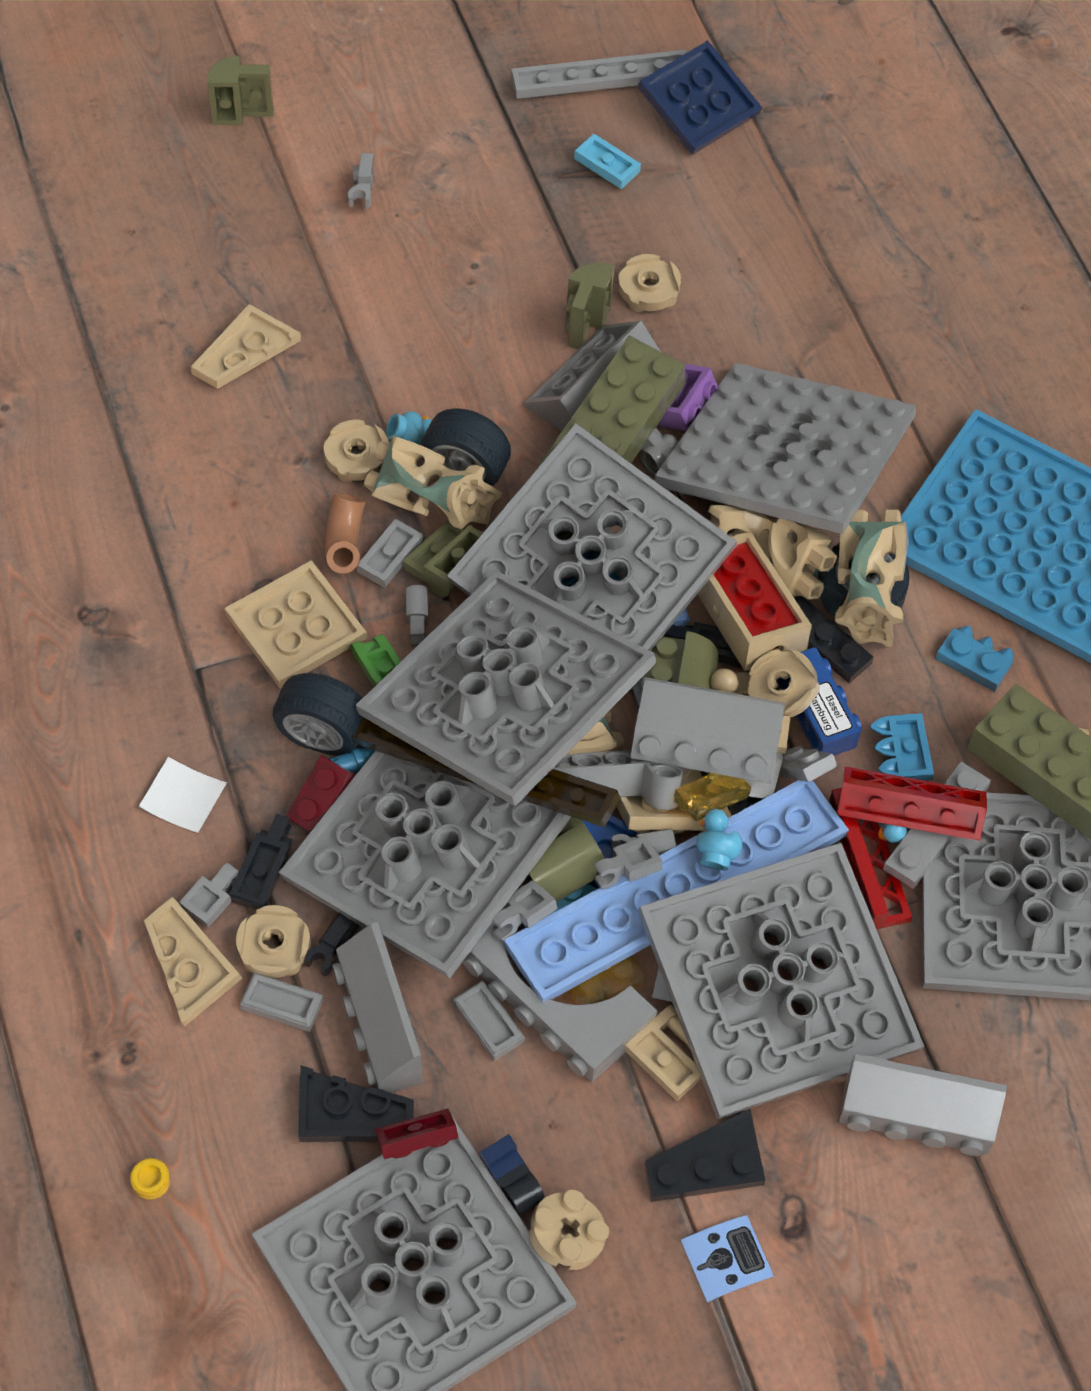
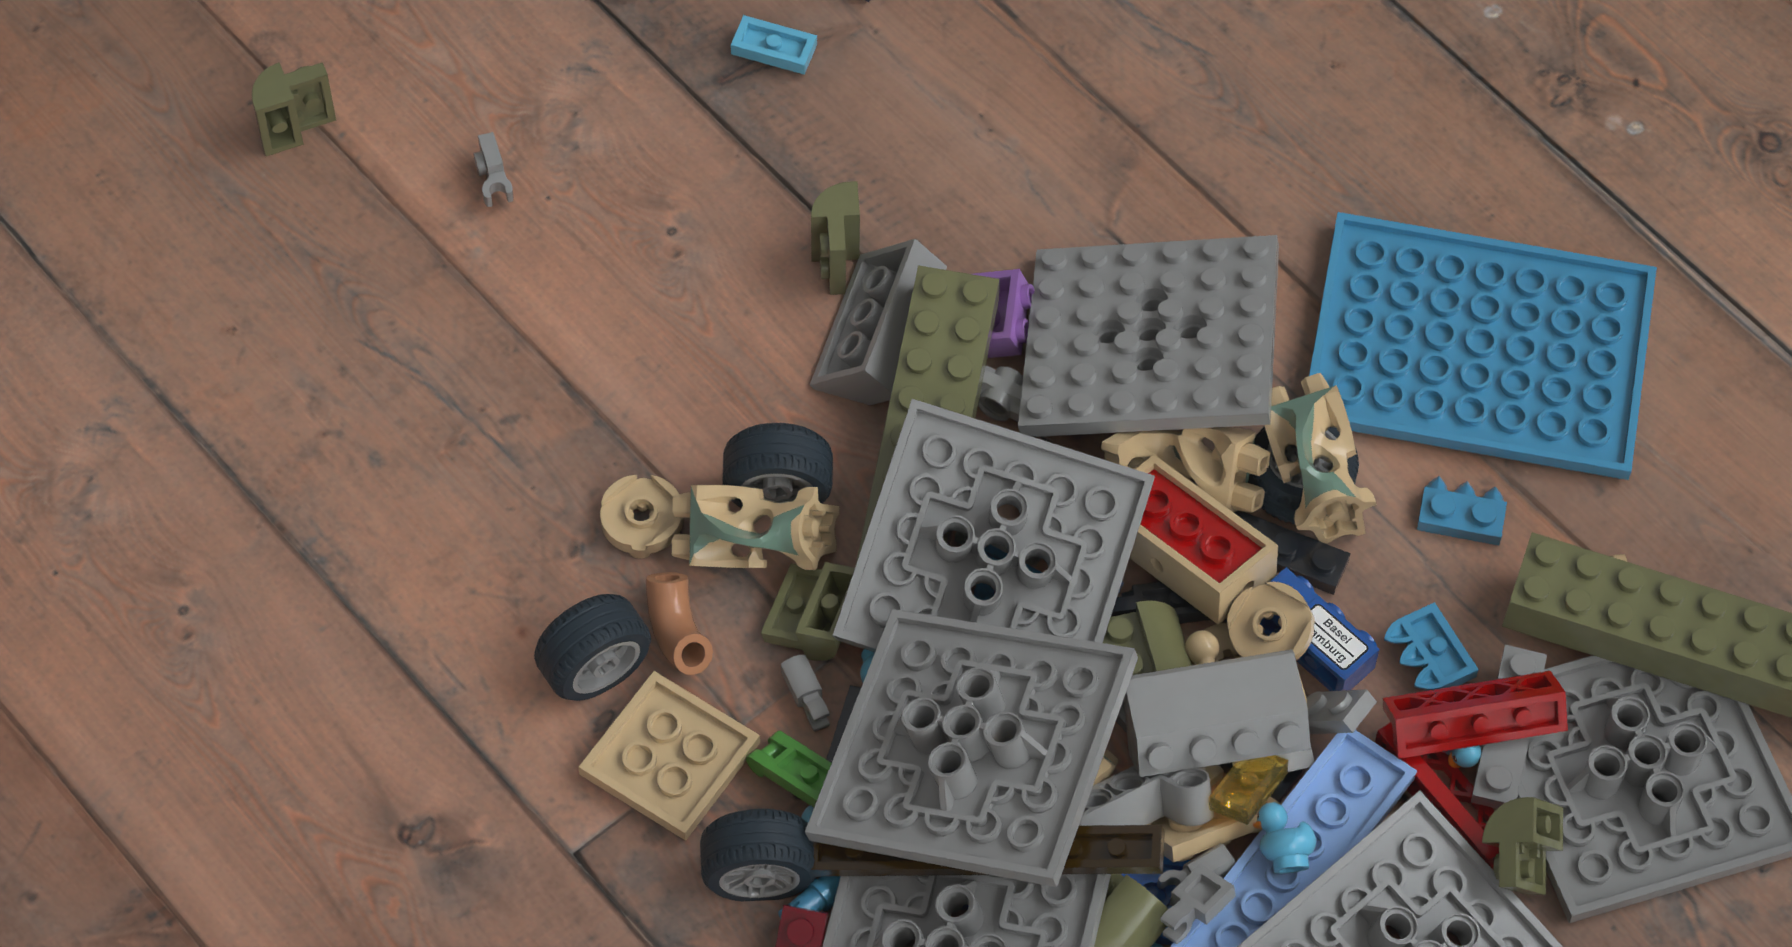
camera: 20 degrees left, 0 degrees up
(243, 346) = (444, 430): tan wing -> none
(271, 526) = (592, 647): none -> black wheel
(386, 555) = (740, 628): light grey plate -> none
(408, 426) = (694, 465): medium azure animal -> none
(645, 297) = (893, 203): tan plate -> none
(906, 909) = (1523, 834): none -> olive brick

